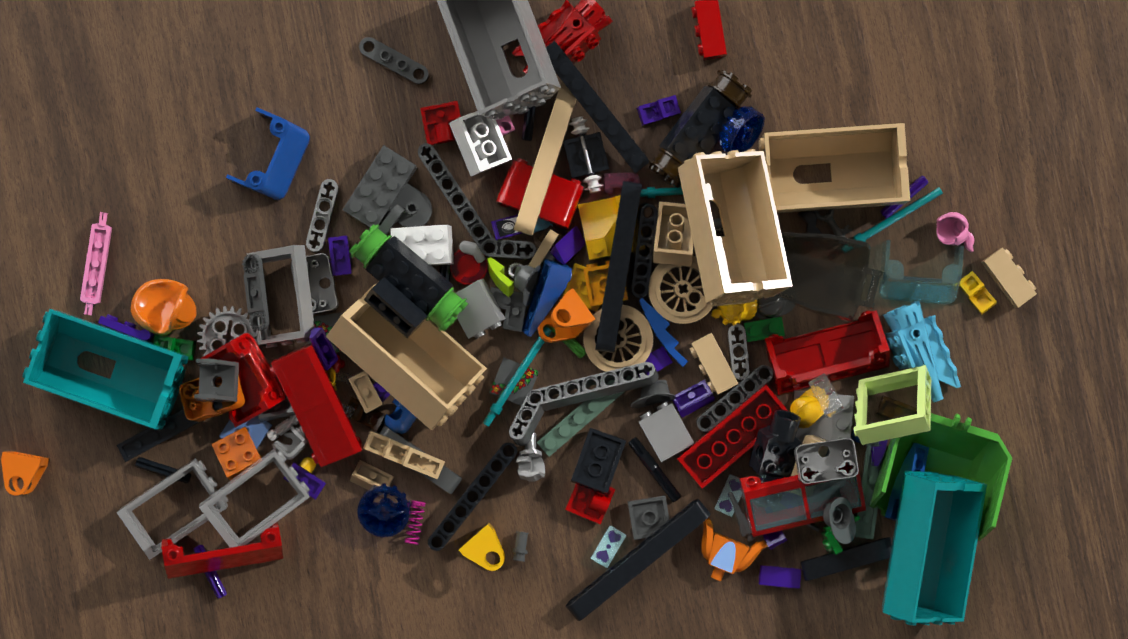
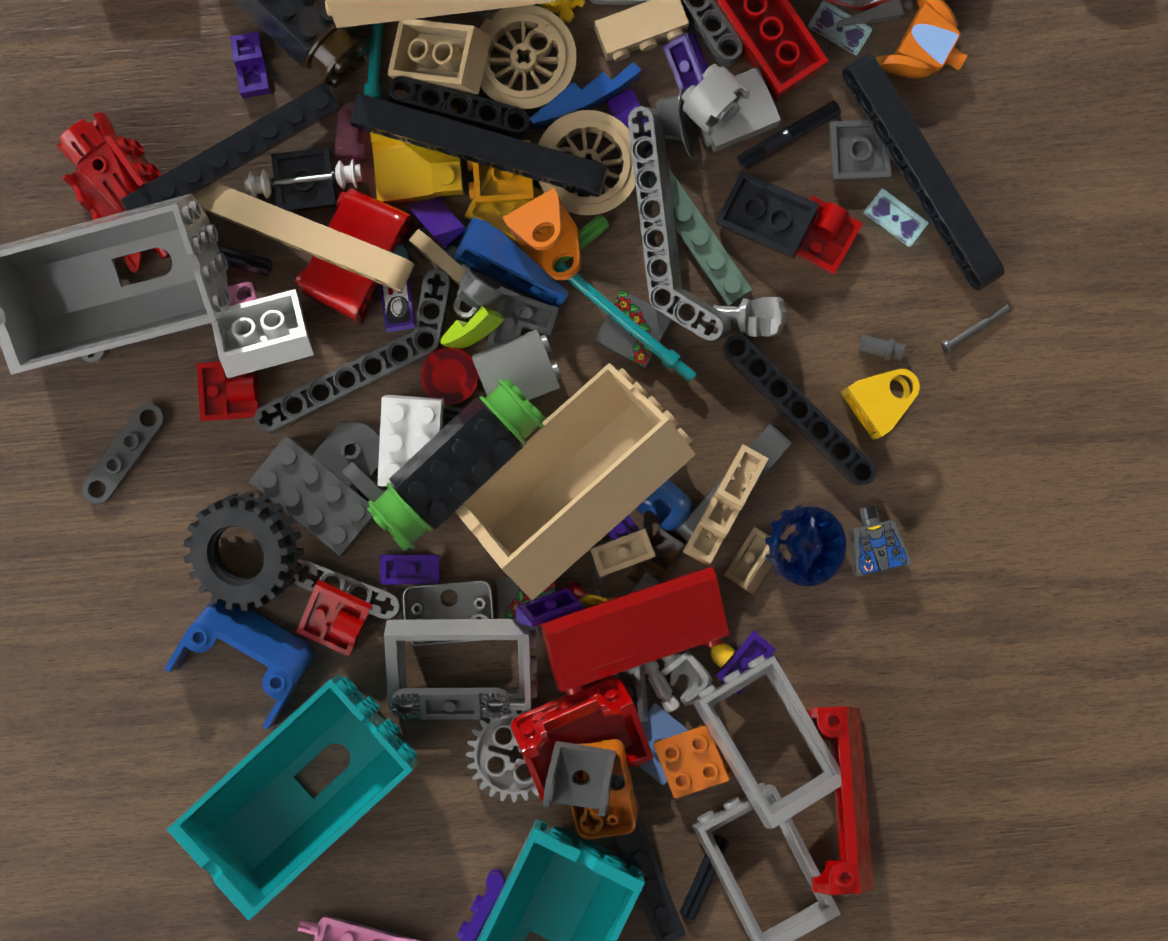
camera: 85 degrees left, 0 degrees up
(161, 185) = (263, 824): none -> teal panel
(163, 306) = (455, 849): orange piece -> none
(180, 346) = (517, 832): green slope -> none
(213, 577) = (876, 819): dark purple axle -> none
(302, 210) = (334, 618): none -> red plate
(353, 163) = (276, 541): none -> black tyre
(390, 557) = (876, 545): none -> torso
(395, 307) = (500, 487): black brick -> none
(415, 503) = (801, 497): dark pink piece -> none
(472, 249) = (424, 366): light grey arm -> none
(527, 590) = (947, 345): none -> dark grey piece
(665, 416) = (714, 99): none -> light grey brick

